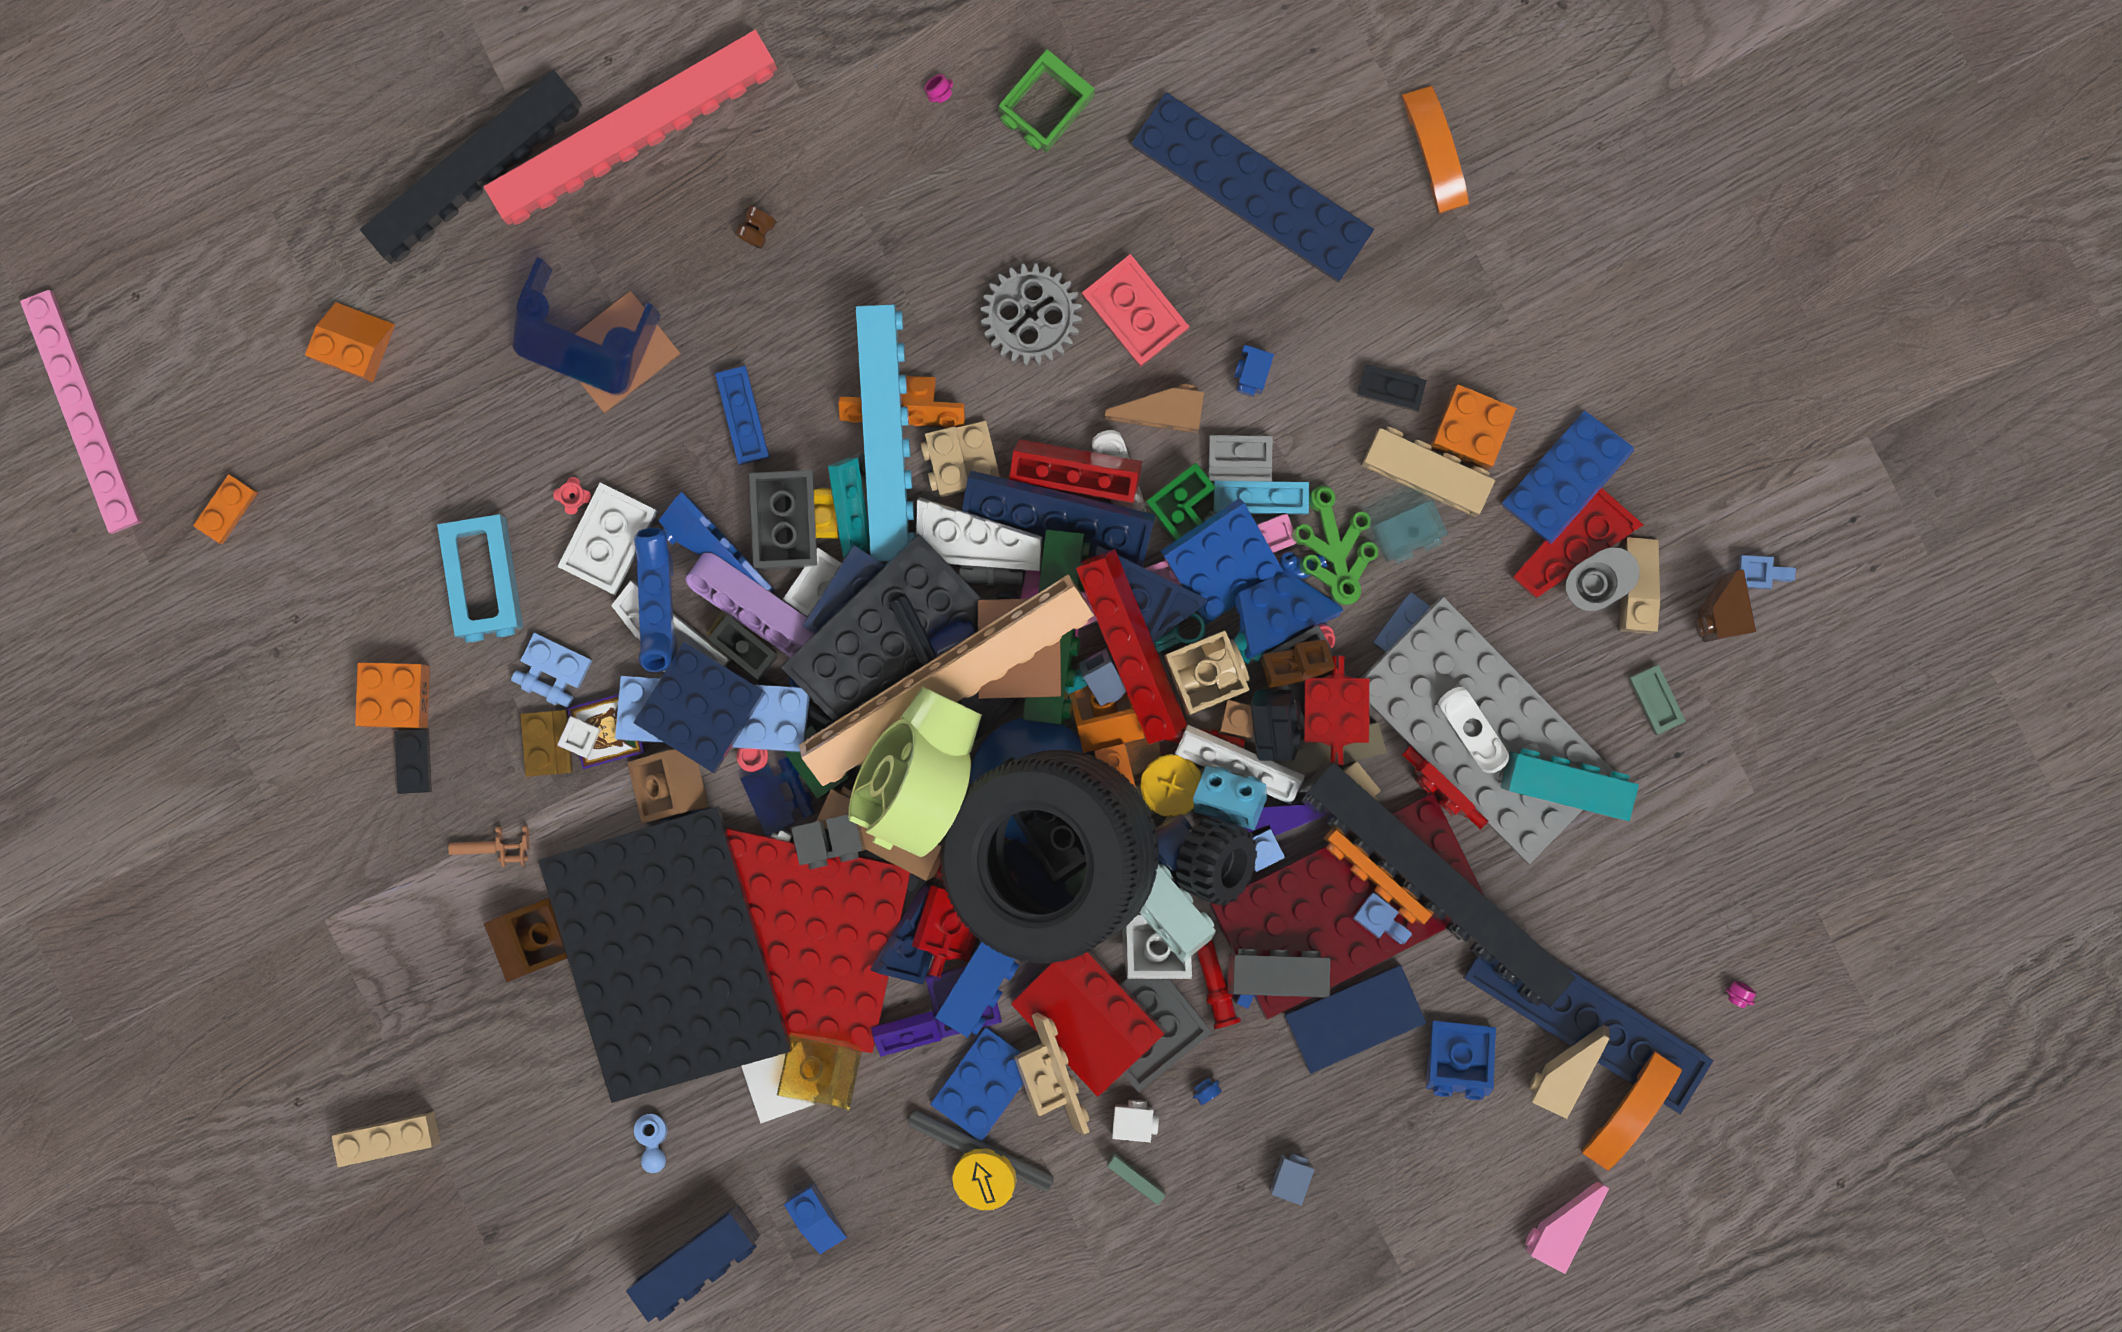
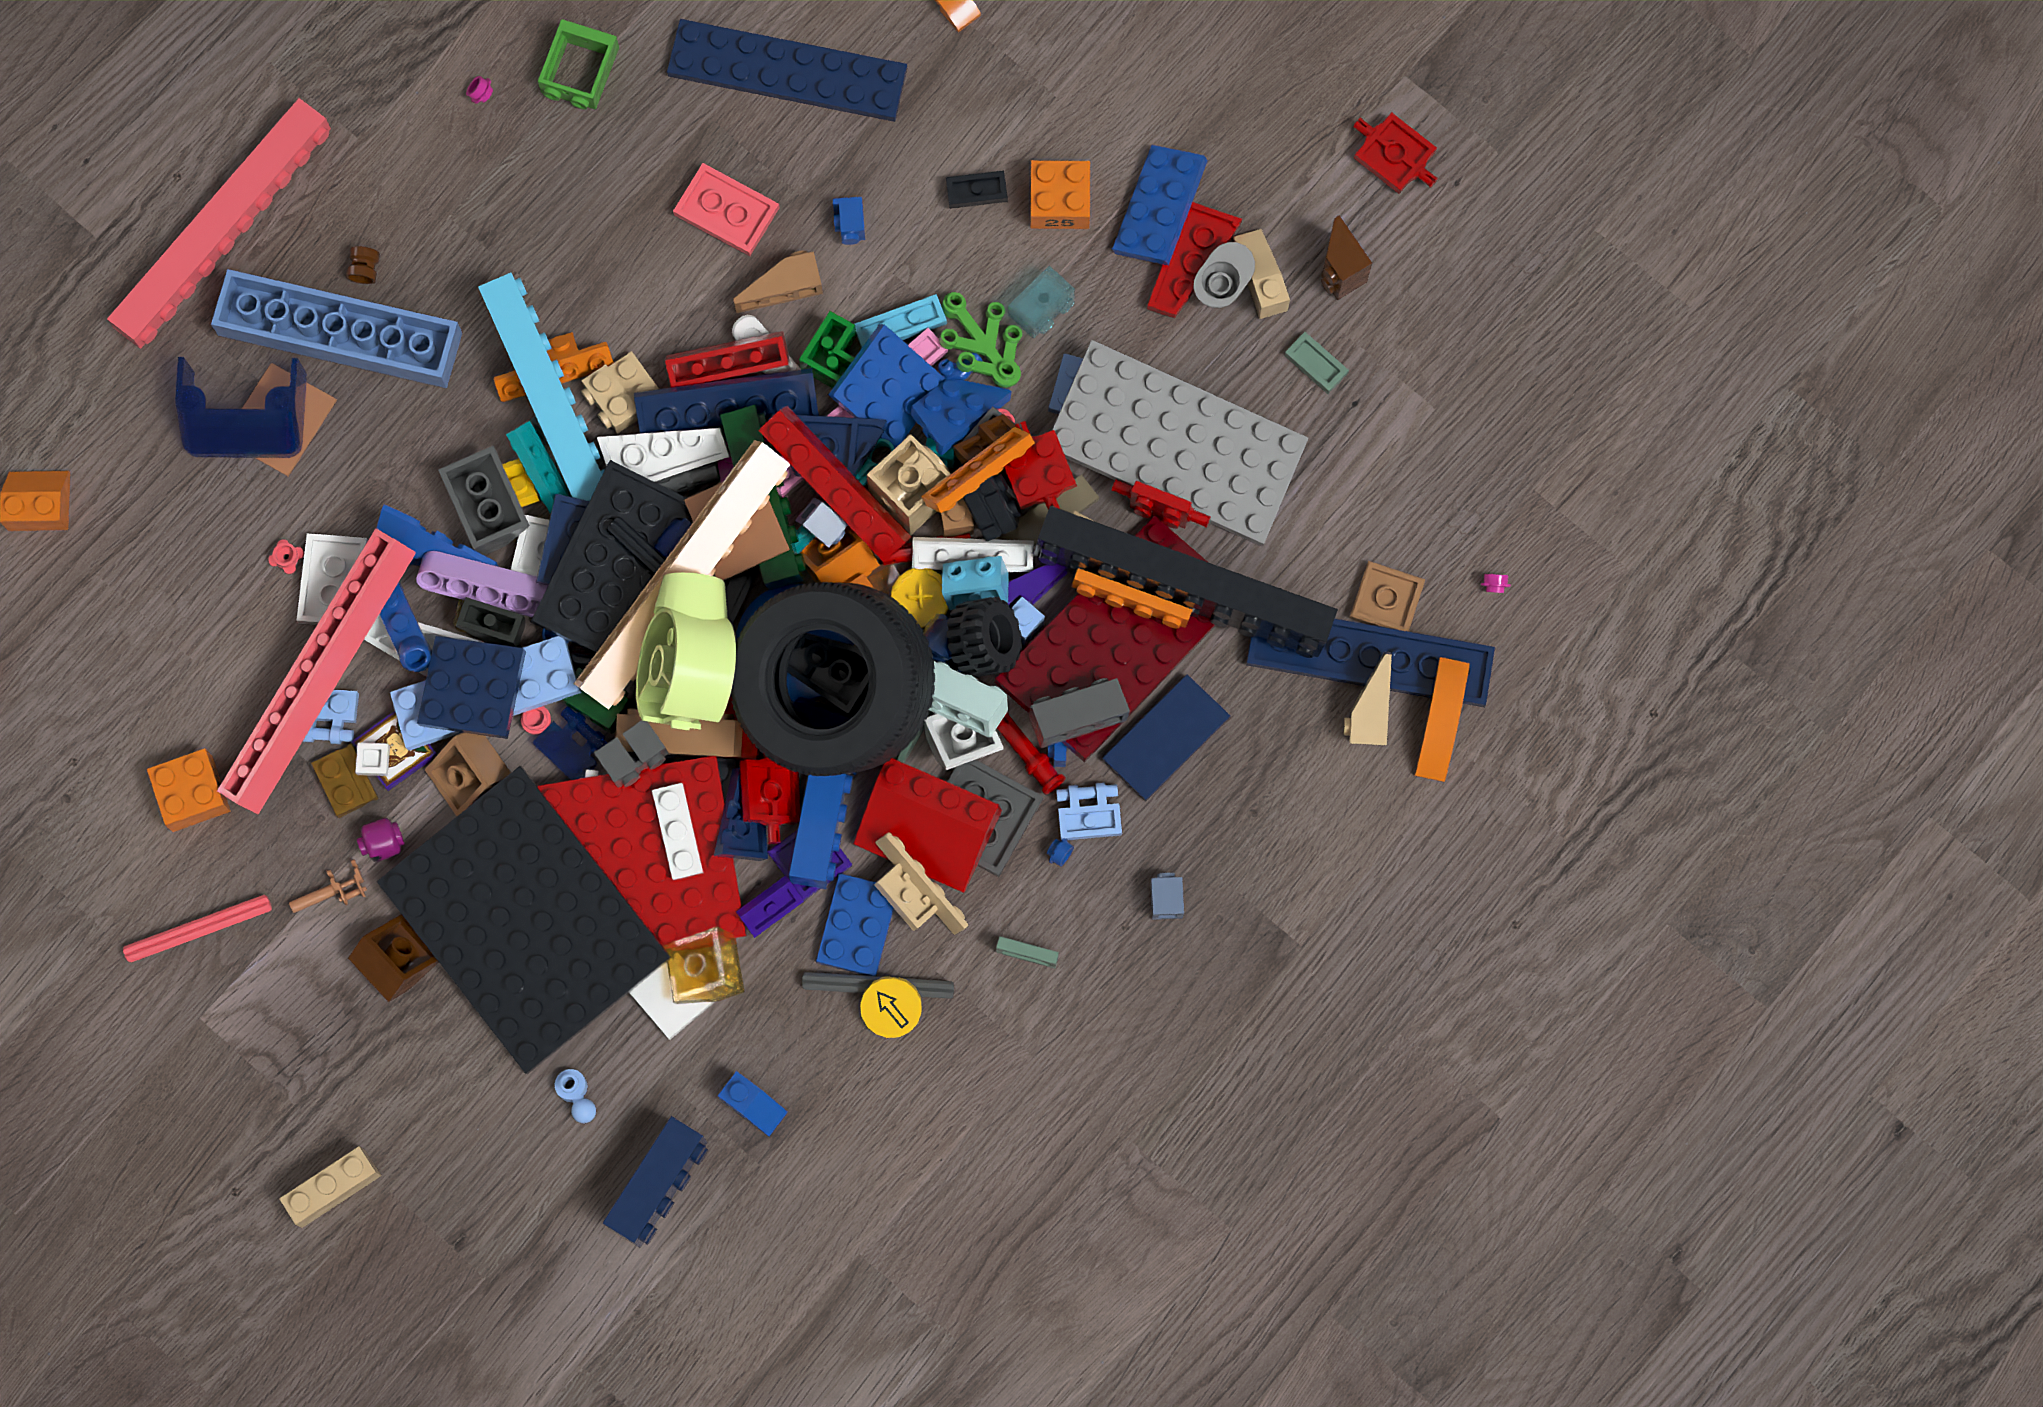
camera: 25 degrees left, 10 degrees down
(352, 833) = (197, 928): none -> coral axle
(413, 761) = (229, 844): black plate -> none
(471, 167) = (87, 310): black brick -> none
(509, 613) = (268, 683): medium azure piece -> none
(555, 632) = (316, 671): none -> coral brick
(558, 819) = (380, 839): none -> magenta head
(705, 284) = (336, 328): none -> medium blue brick
(742, 415) = (413, 429): blue plate -> none
(844, 930) = (677, 831): none -> white plate
(1012, 293) = (612, 236): light grey gear -> none
(1134, 1121) = (1005, 902): white brick -> none
(1240, 458) = (868, 296): light grey plate -> none
(1248, 1073) = (1089, 821): none -> light blue plate
(1277, 695) = (977, 470): none -> orange plate
(1378, 918) = (1148, 633): medium blue plate -> none
(1428, 472) = (1037, 246): tan brick -> none
(1461, 1060) = (1273, 734): blue plate -> none
(1485, 746) = (1144, 426): white piece -> none
(1564, 1230) = (1425, 853): bright pink slope -> none
(1569, 785) = (1269, 457): teal brick -> none
(1627, 966) = (1387, 597): none -> medium nougat tile
(1760, 572) = (1362, 221): medium blue plate -> none
(1825, 515) = (1395, 153): none -> red plate

